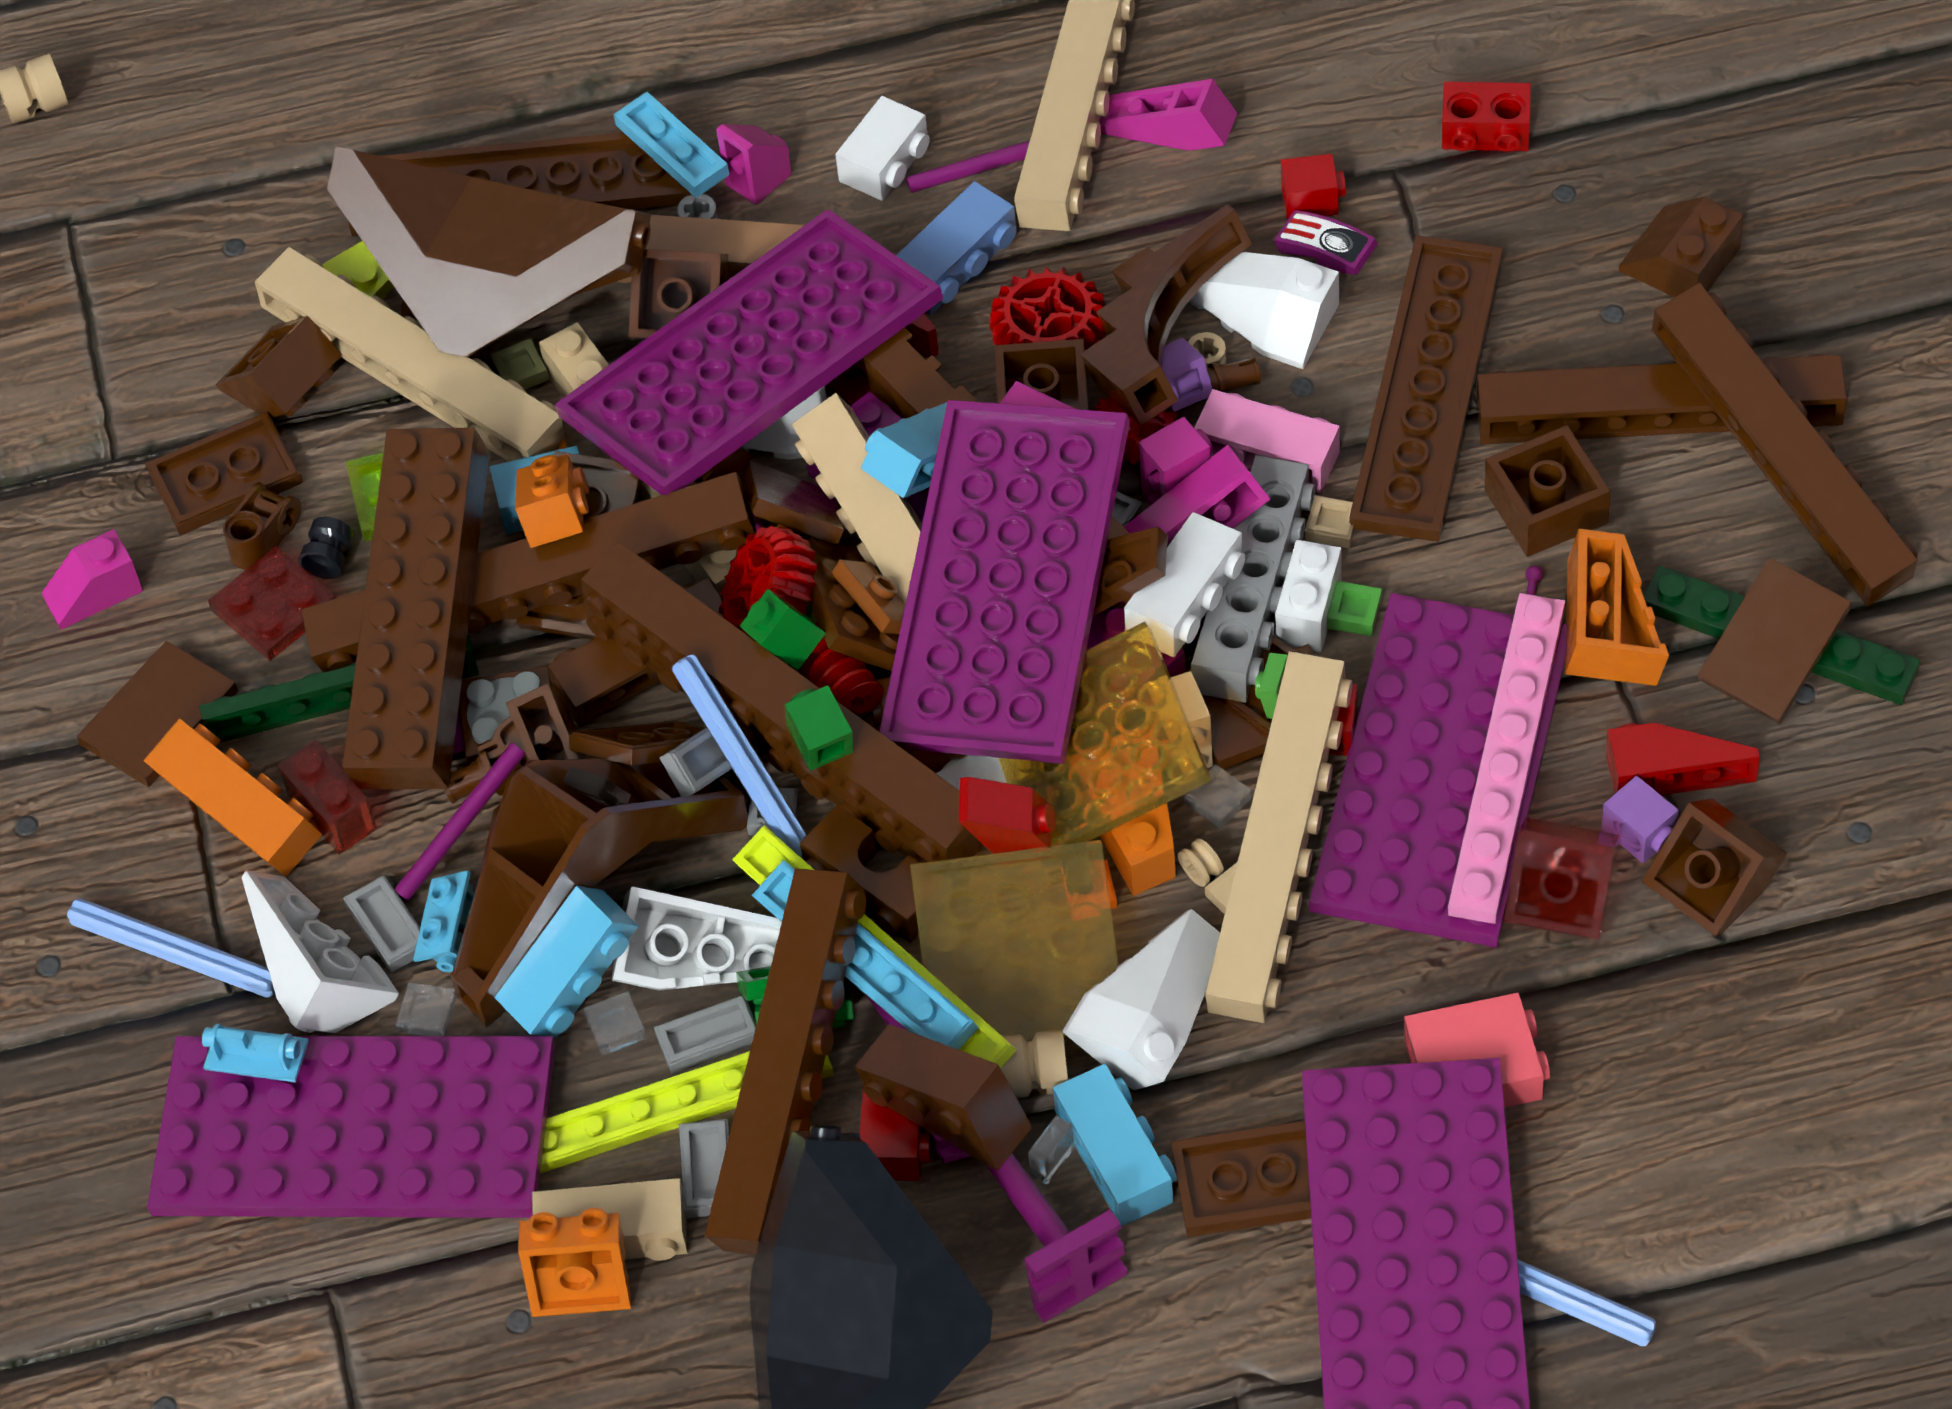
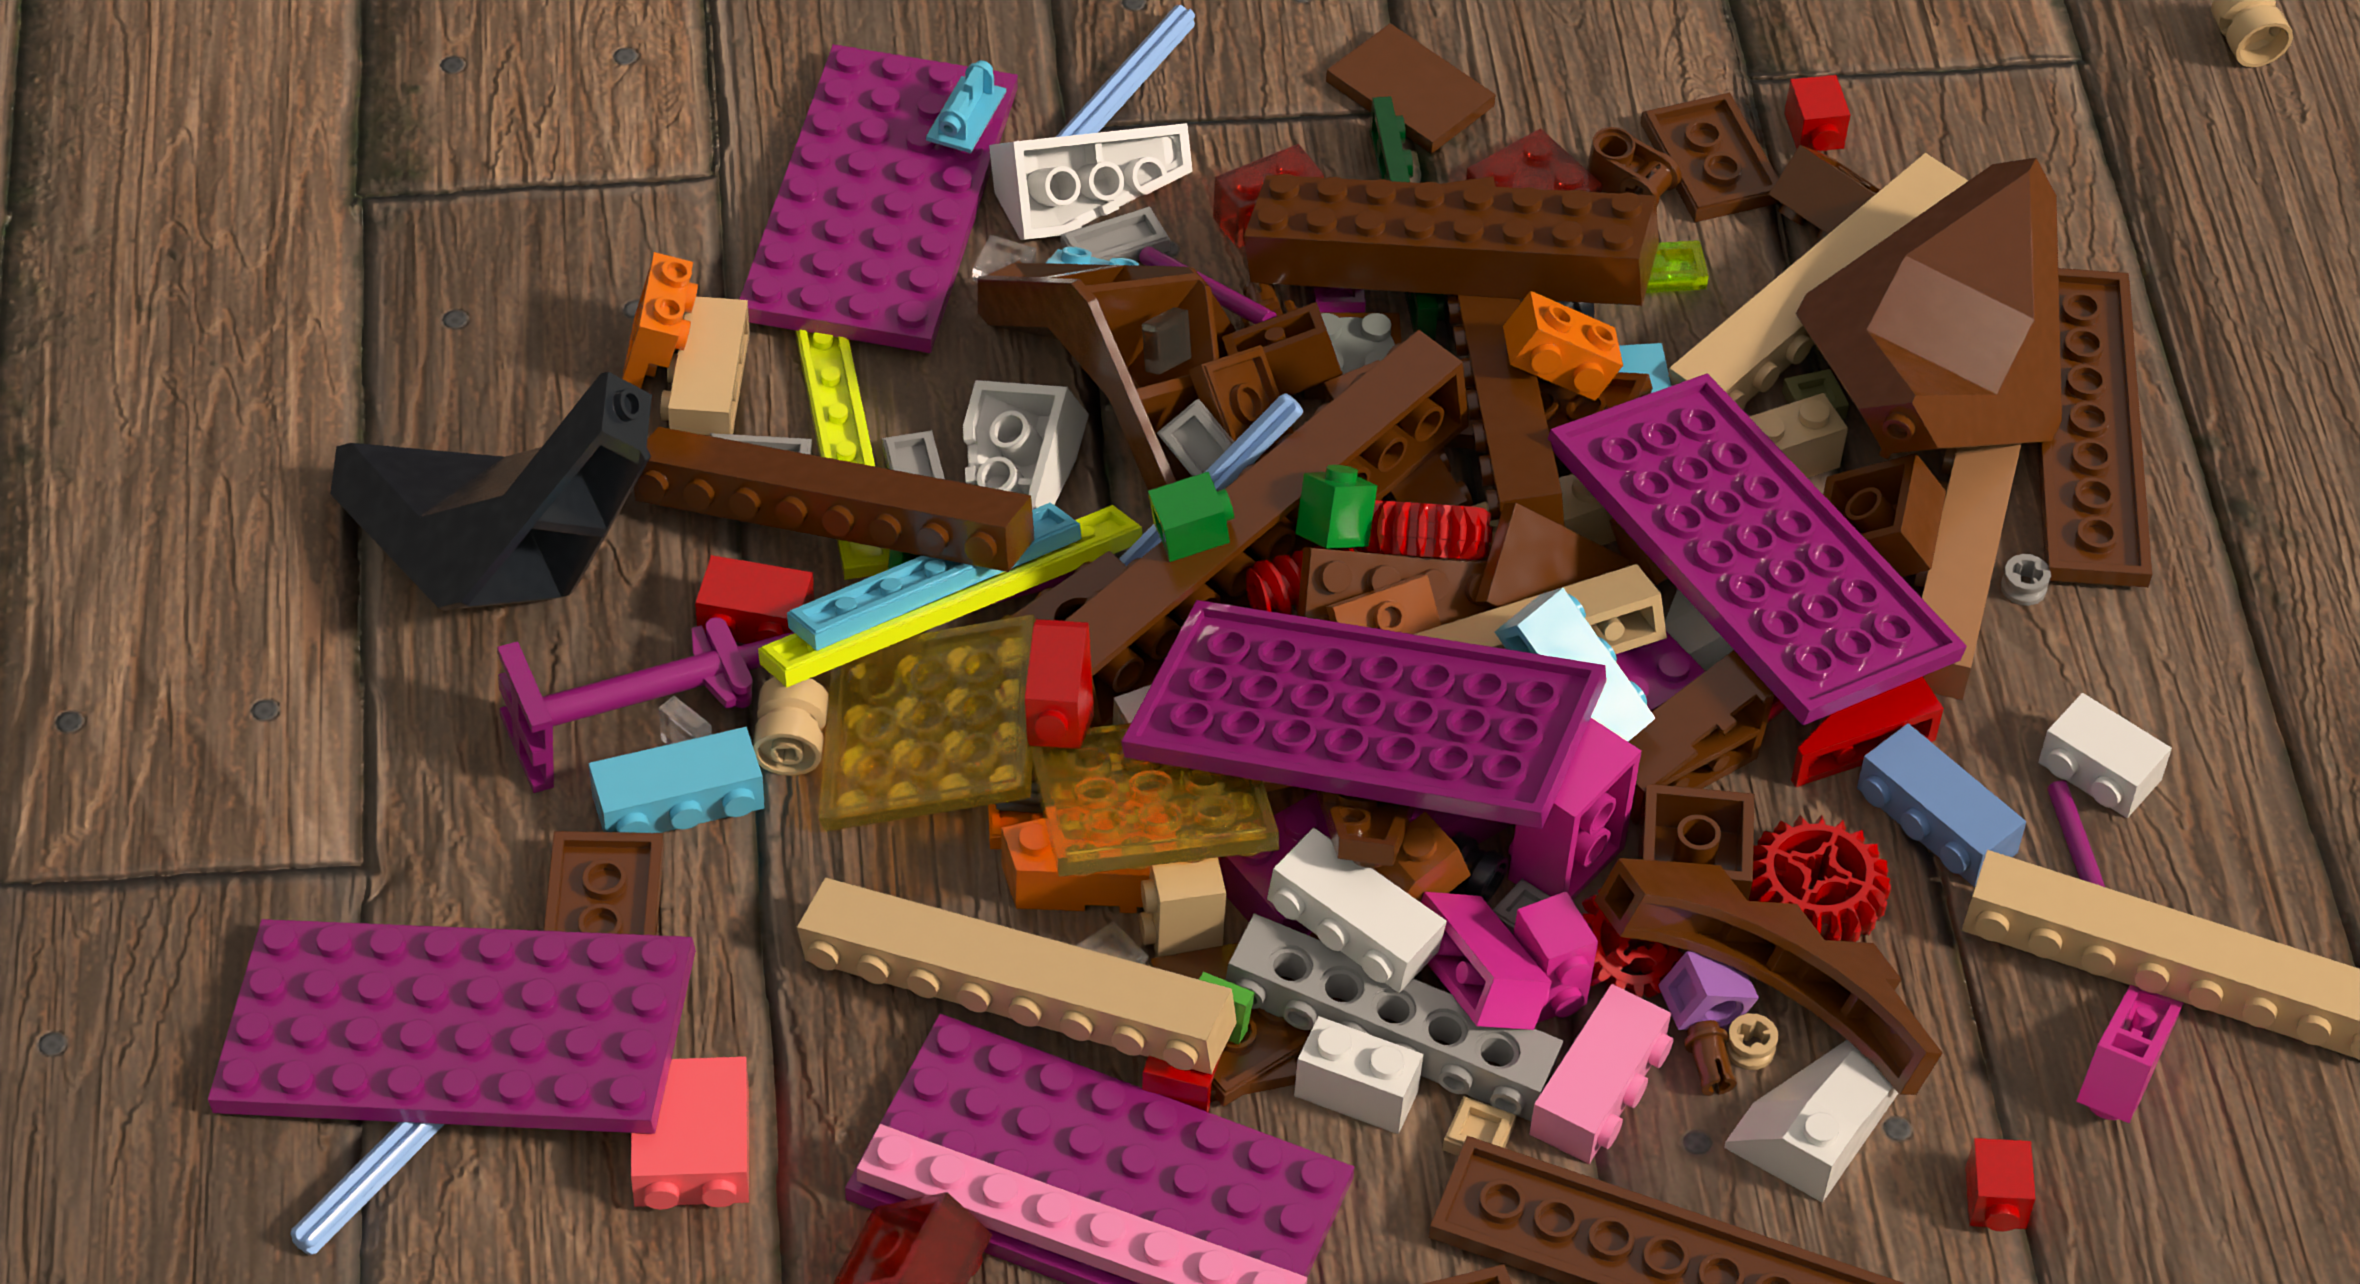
camera: 90 degrees right, 5 degrees down
(91, 580) = (1583, 47): dark pink slope -> none
(173, 391) = (1817, 113): none -> red brick
(233, 797) = (1295, 111): orange brick -> none
(566, 962) = (1001, 341): medium azure brick -> none
(614, 1023) = (945, 403): clear tile -> none
(671, 144) = (2110, 542): medium azure plate -> none
(754, 160) = (2089, 620): dark pink slope -> none
(945, 1093) = (735, 607): reddish brown wedge -> none
(1149, 1004) = (829, 826): white wedge -> none
(1200, 862) = (1017, 912): tan bush -> none
(1327, 240) = (1911, 1191): slope -> none
(1354, 608) = (1338, 1125): bright green plate -> none

